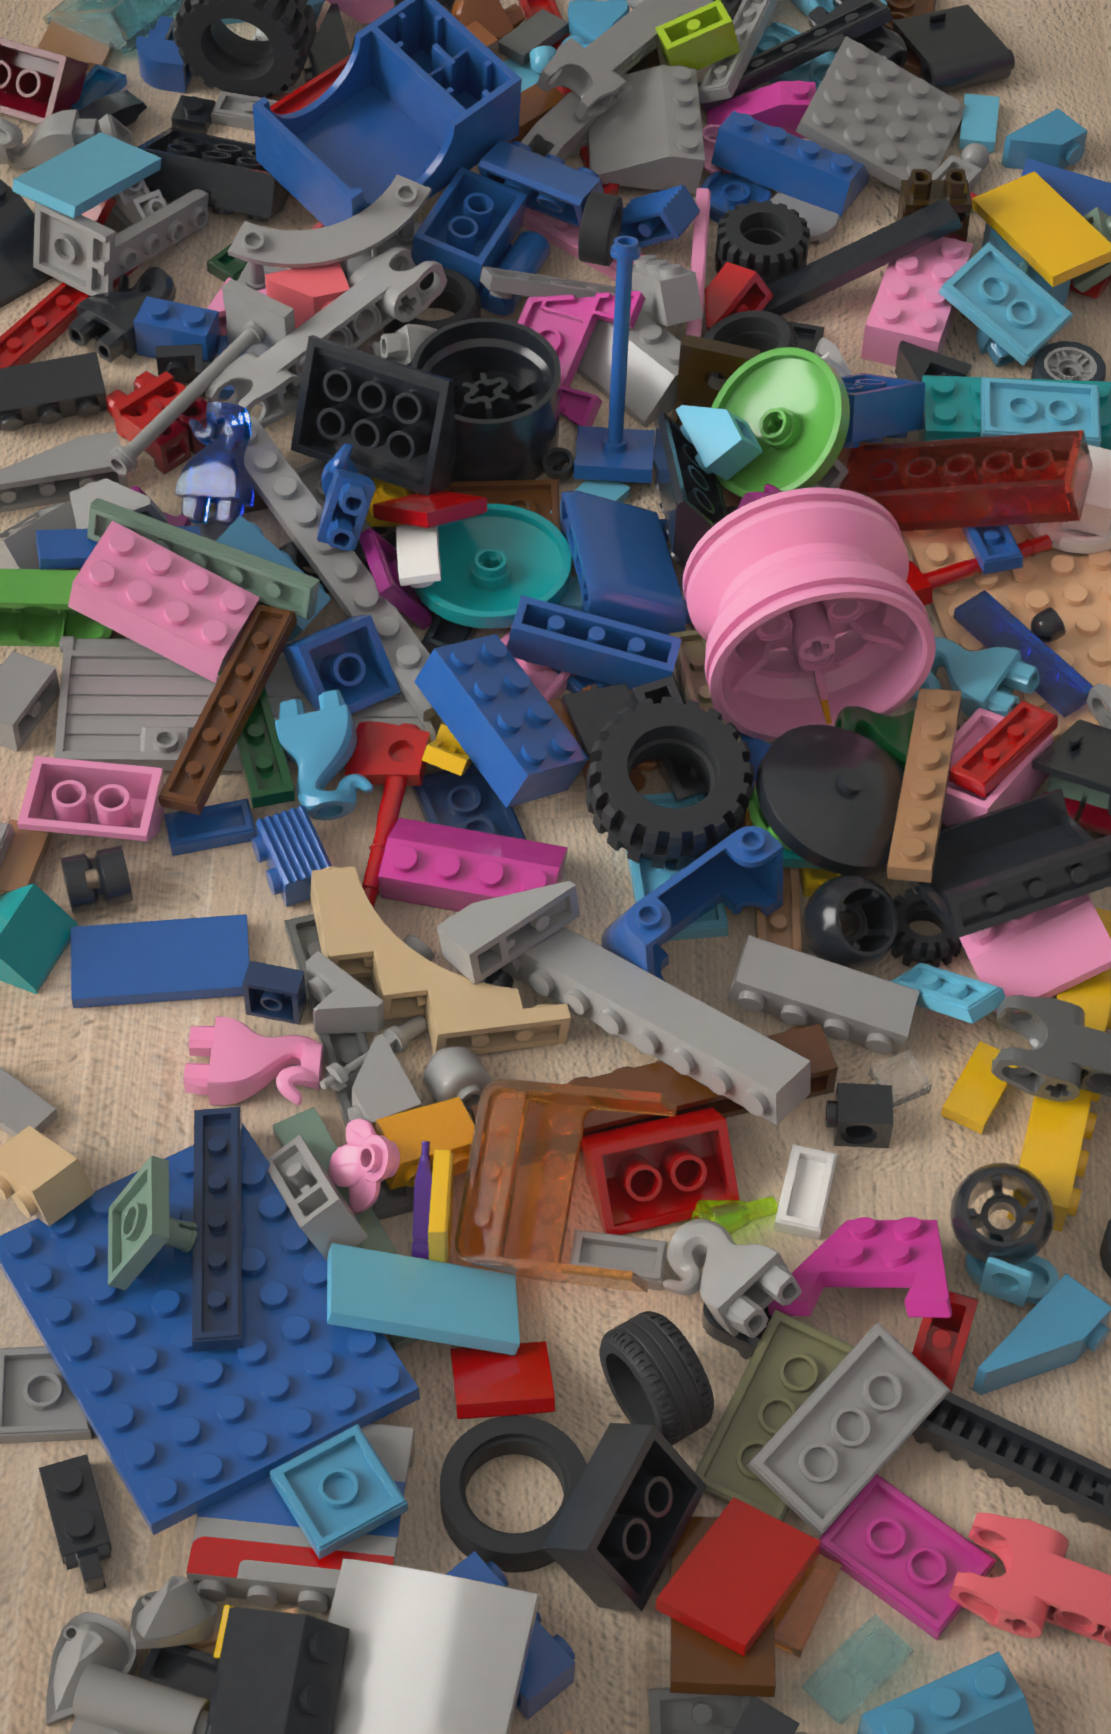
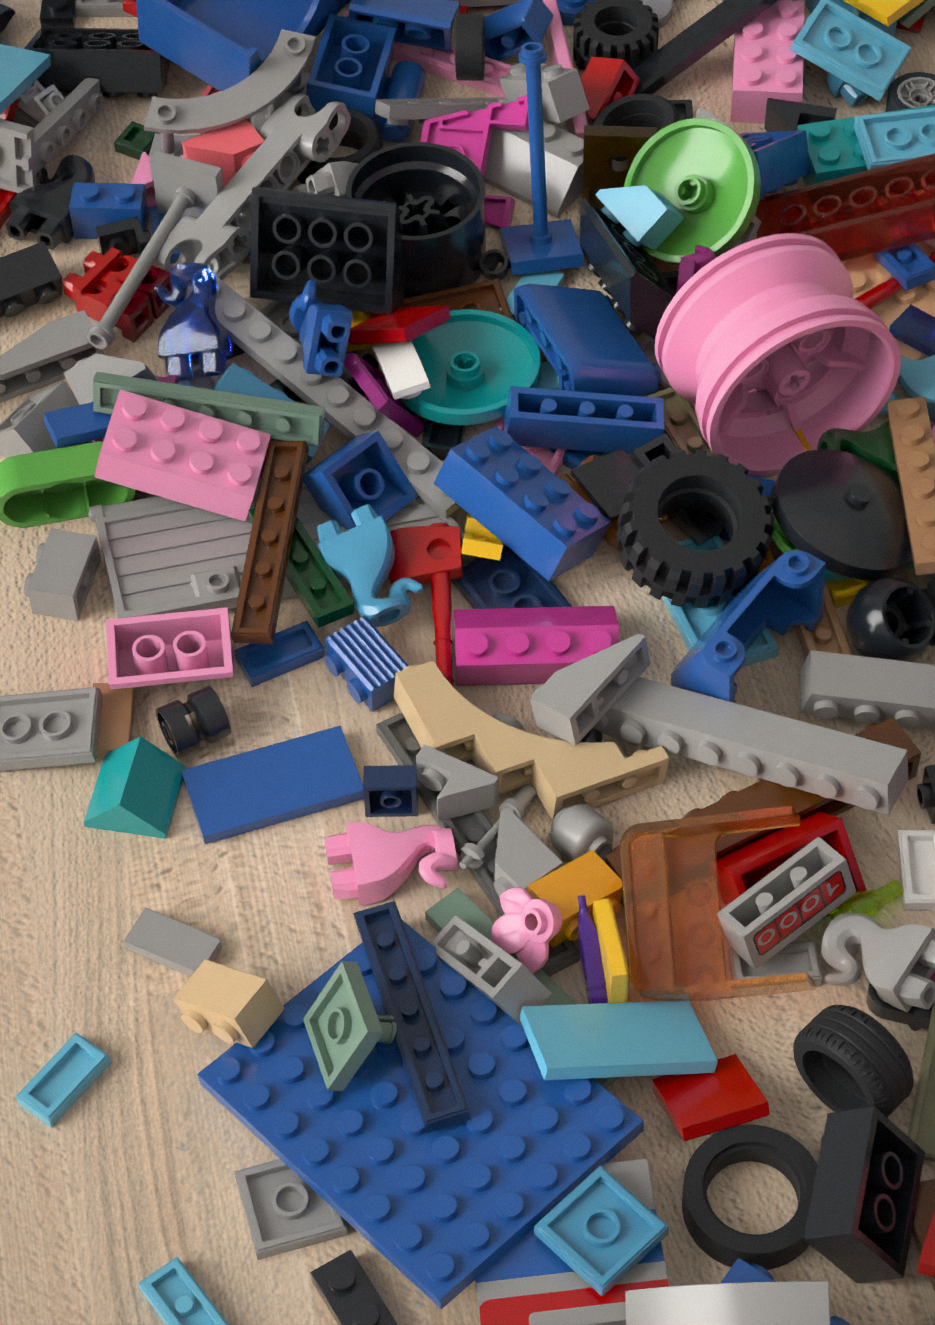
camera: 10 degrees left, 0 degrees up
(641, 1194) = (786, 902): none -> light grey brick

